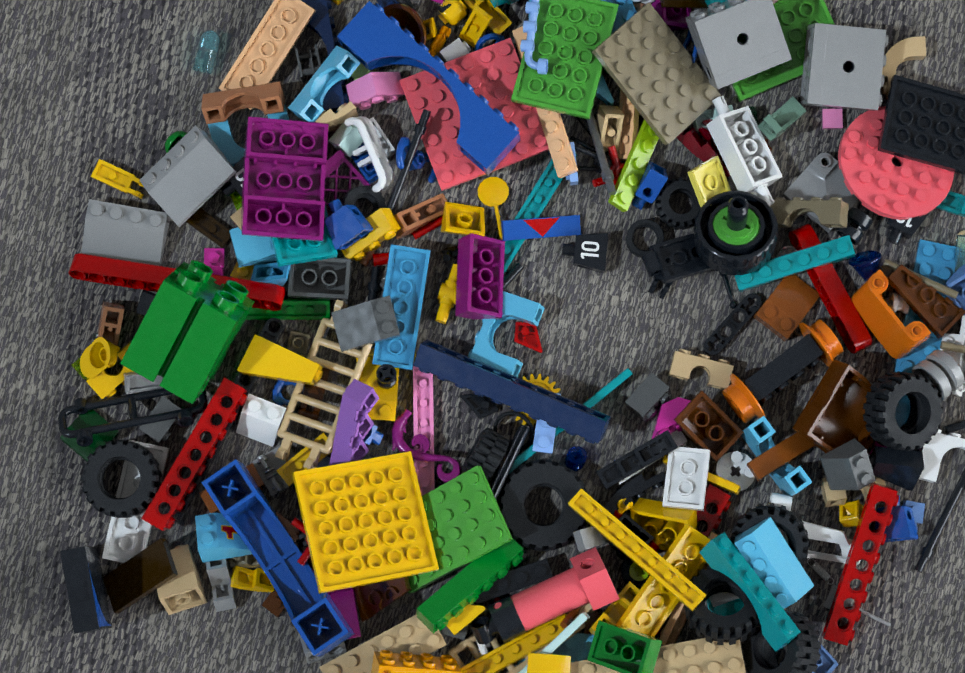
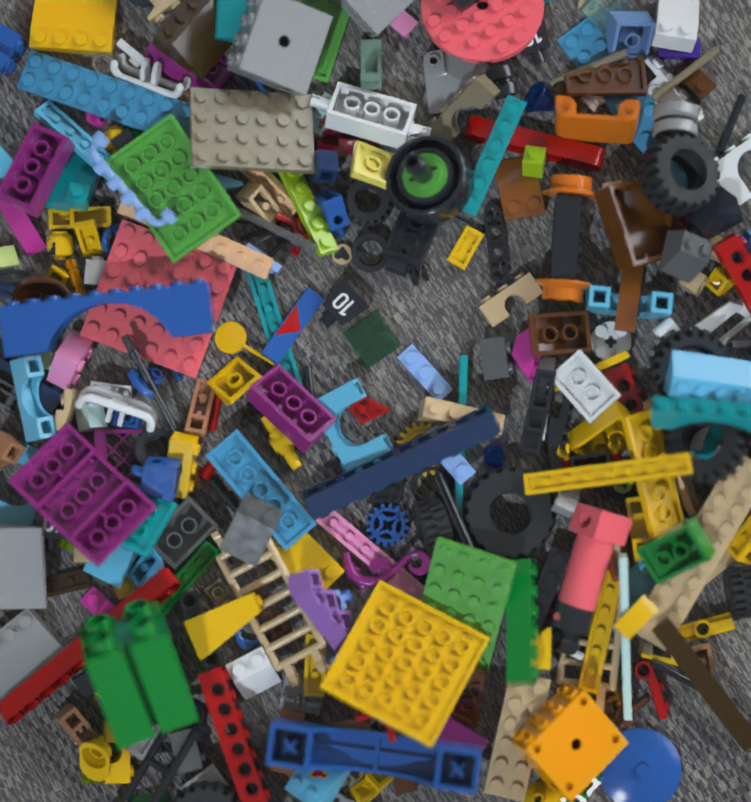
camera: 45 degrees left, 5 degrees up
(383, 372) = (301, 545): black wheel -> none
(454, 432) = (394, 534): none -> blue gear
(572, 387) = (442, 412): none -> tan arch
(582, 294) = (372, 339): none -> clear green slope
(591, 355) = (424, 372): none -> light blue plate
(624, 219) = (343, 255): none -> tile
(678, 149) = (325, 166): none -> dark blue slope
(709, 304) = (465, 247): none -> yellow plate
(817, 298) = (534, 161): none -> lime brick

